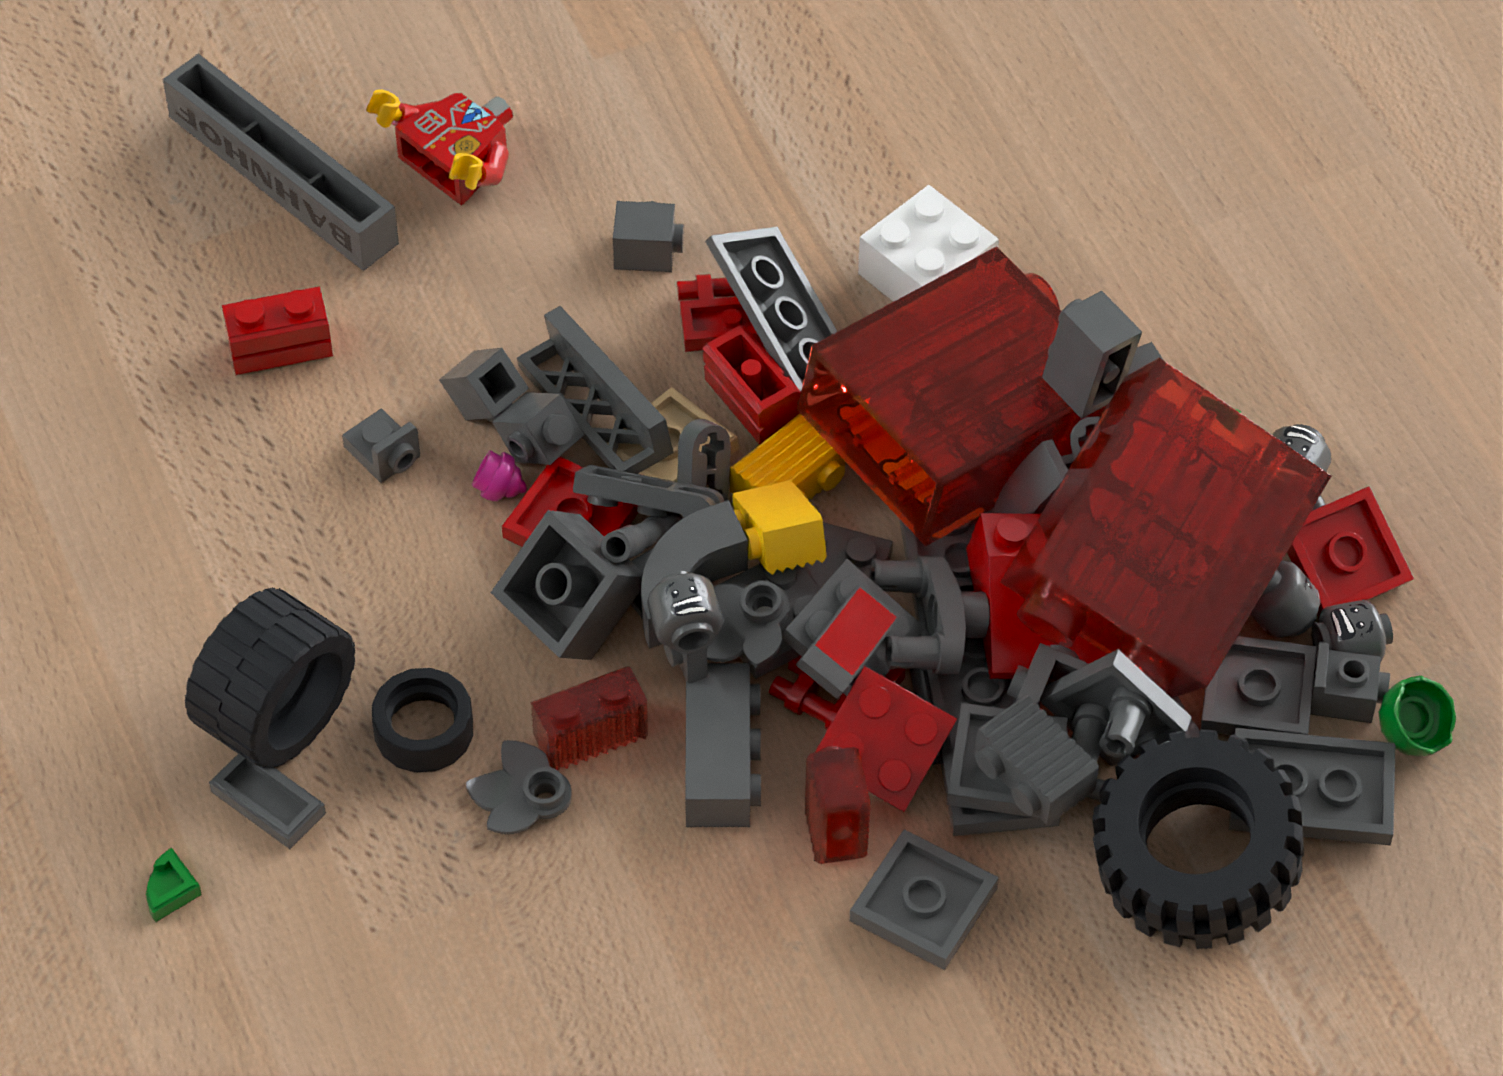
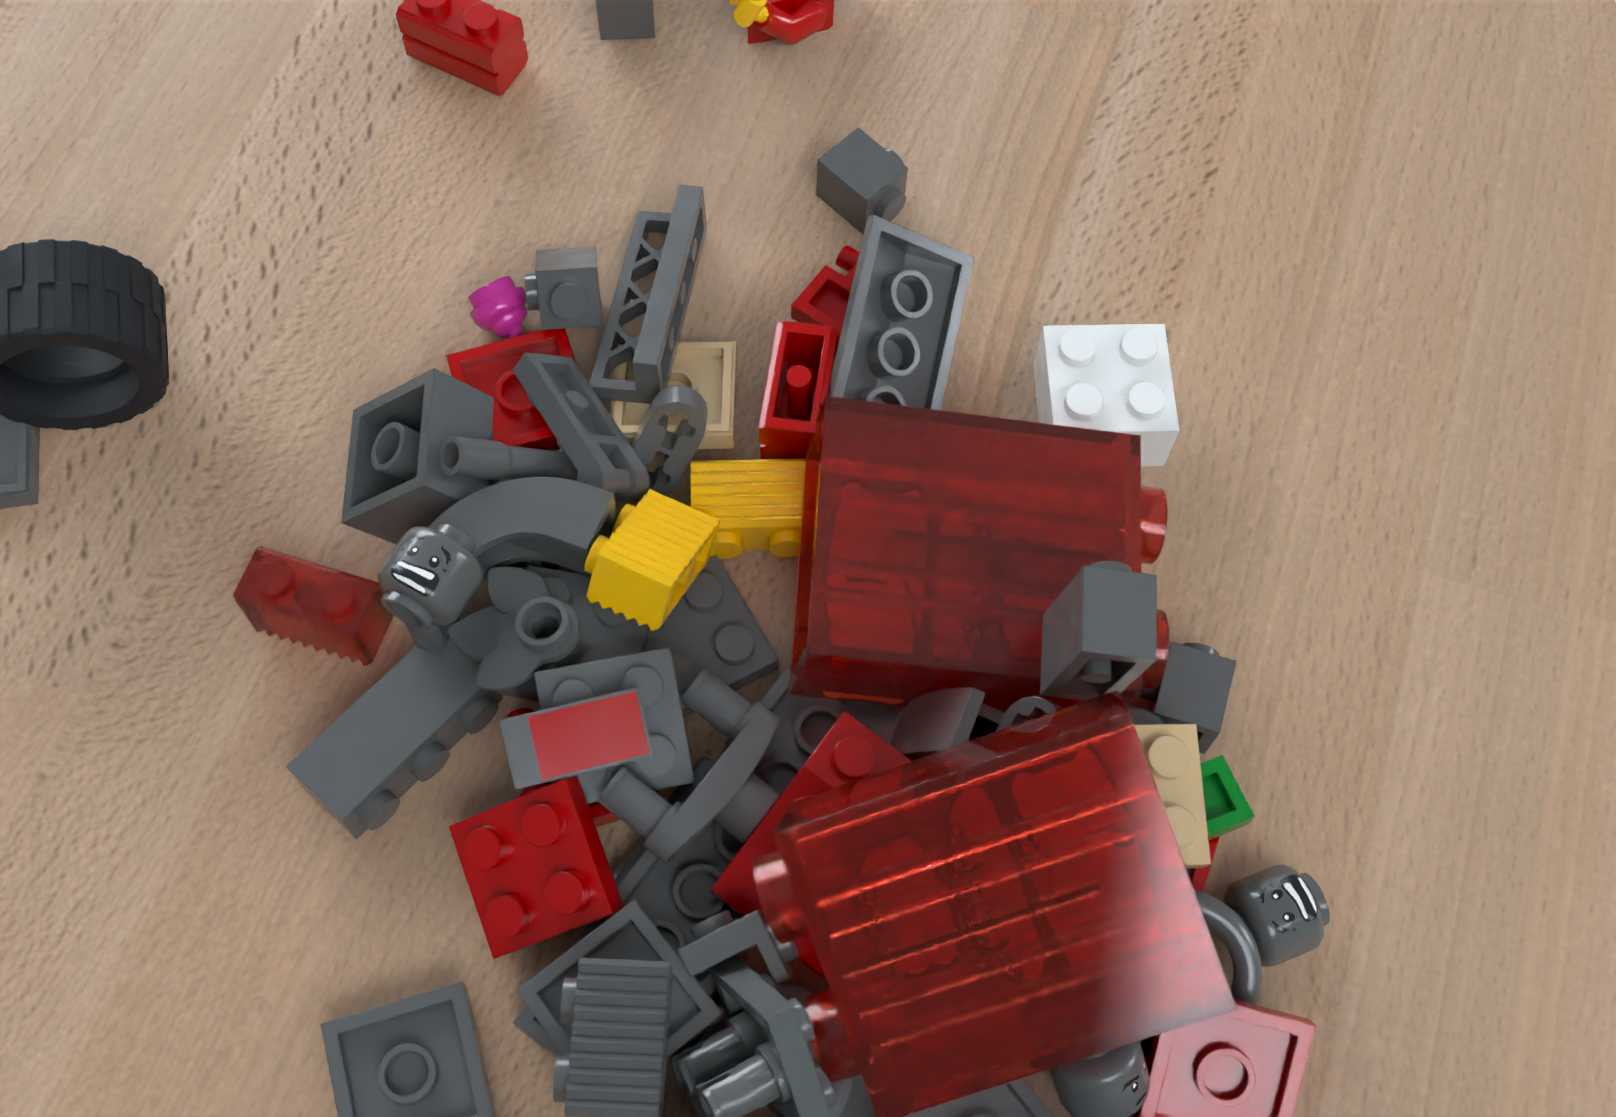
camera: 40 degrees right, 10 degrees up
(383, 445) = (443, 204): dark grey bracket -> none
(424, 754) = (172, 446): black tyre -> none
(484, 384) = (568, 211): dark grey brick -> none
(514, 790) = (191, 619): dark grey plate -> none
(837, 805) = (411, 897): clear red brick -> none

